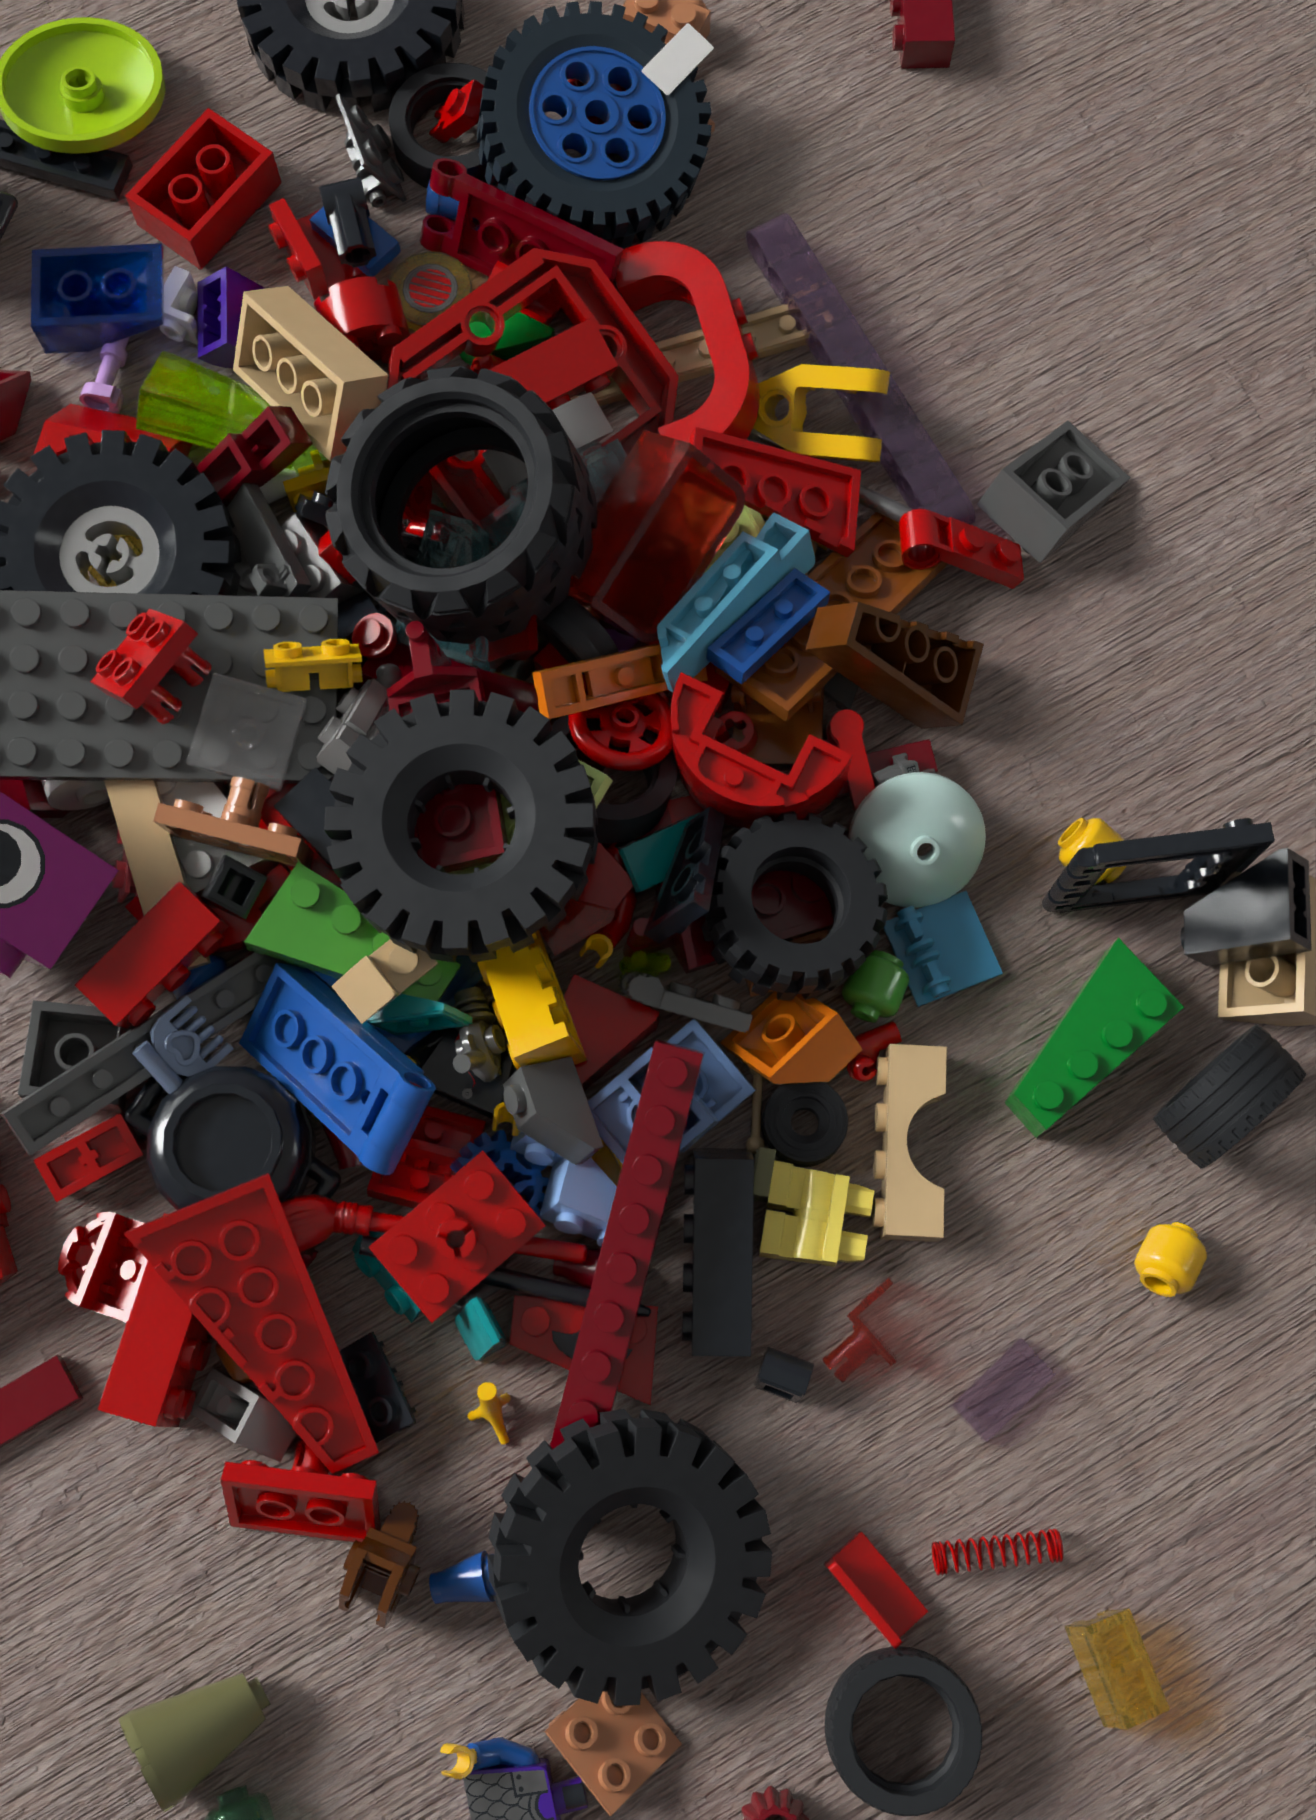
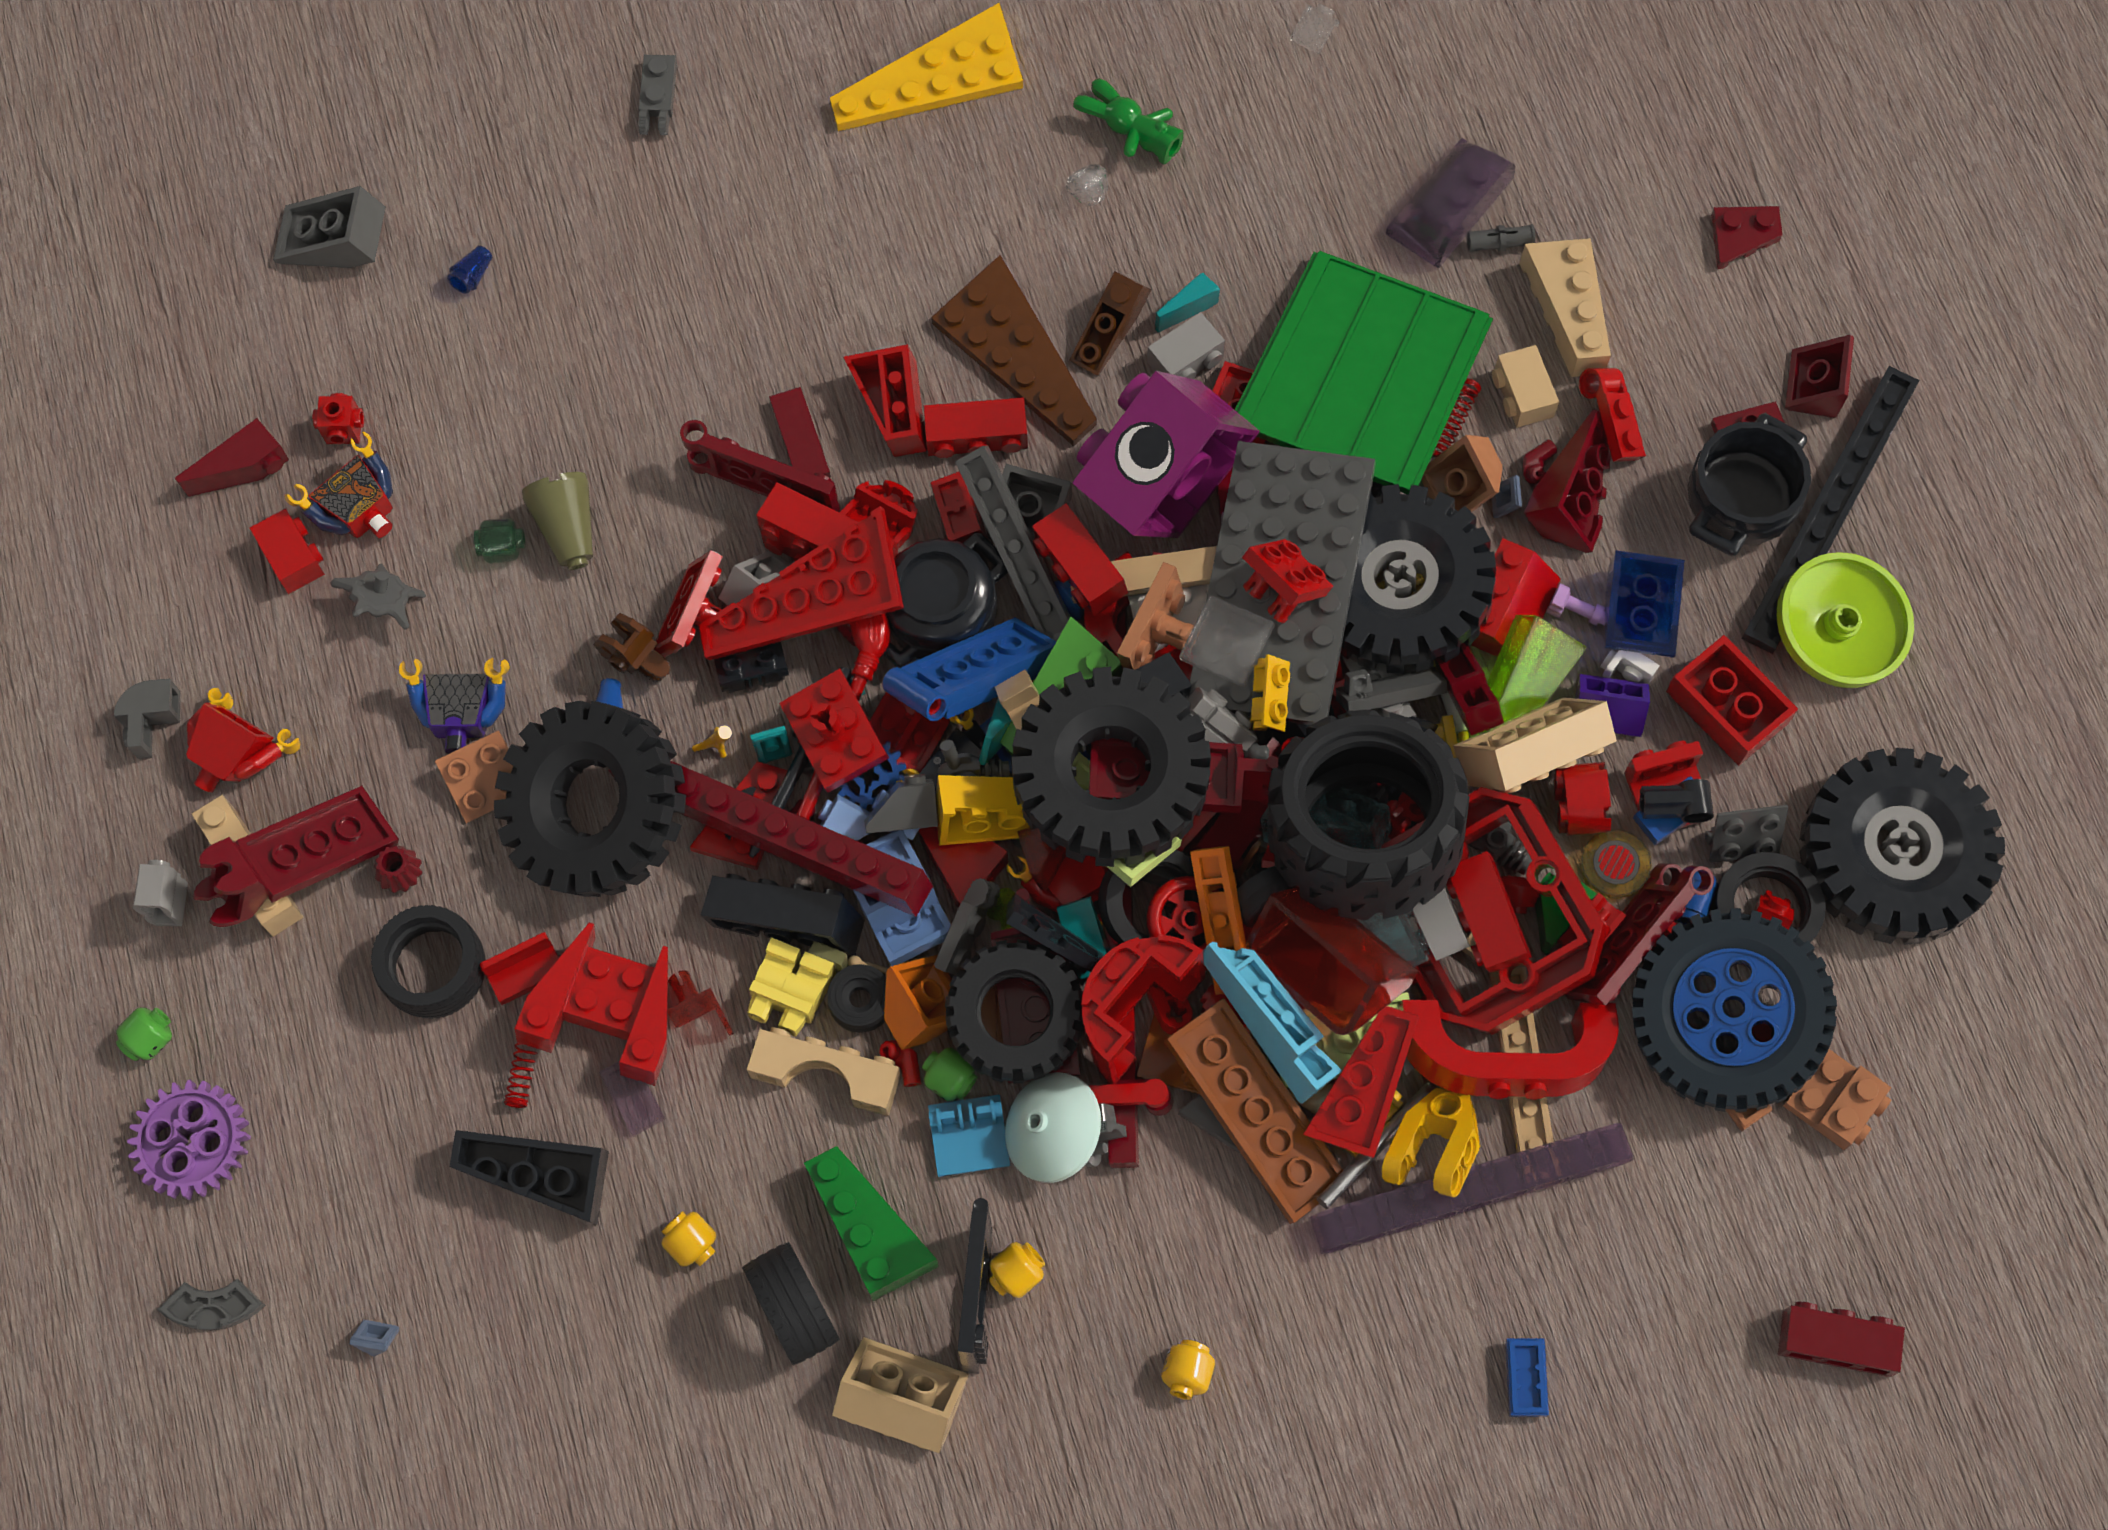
camera: 105 degrees right, 5 degrees down
(72, 1477) = (753, 470): none -> dark red hinge
(179, 1051) = (1009, 567): sand blue piece -> none
(234, 887) = (1116, 620): black brick -> none
(677, 59) = (1777, 1084): white sticker -> none
(767, 626) = (1243, 1042): blue plate -> none
(784, 1375) = (684, 940): black brick -> none
(889, 1454) = (605, 996): none -> red wedge
(898, 661) = (1195, 1148): reddish brown wedge -> none
(934, 538) = (1293, 1228): red plate -> none
(1050, 292) = (1526, 1377): none -> blue plate
(1052, 490) = (1337, 1328): dark grey slope -> none
(1117, 1669) = (422, 1119): clear yellow hinge -> none
(1144, 1490) = (544, 1171): none -> black wedge
(1150, 637) = (1188, 1369): none -> yellow head
(1253, 914) = (929, 1371): black slope -> none

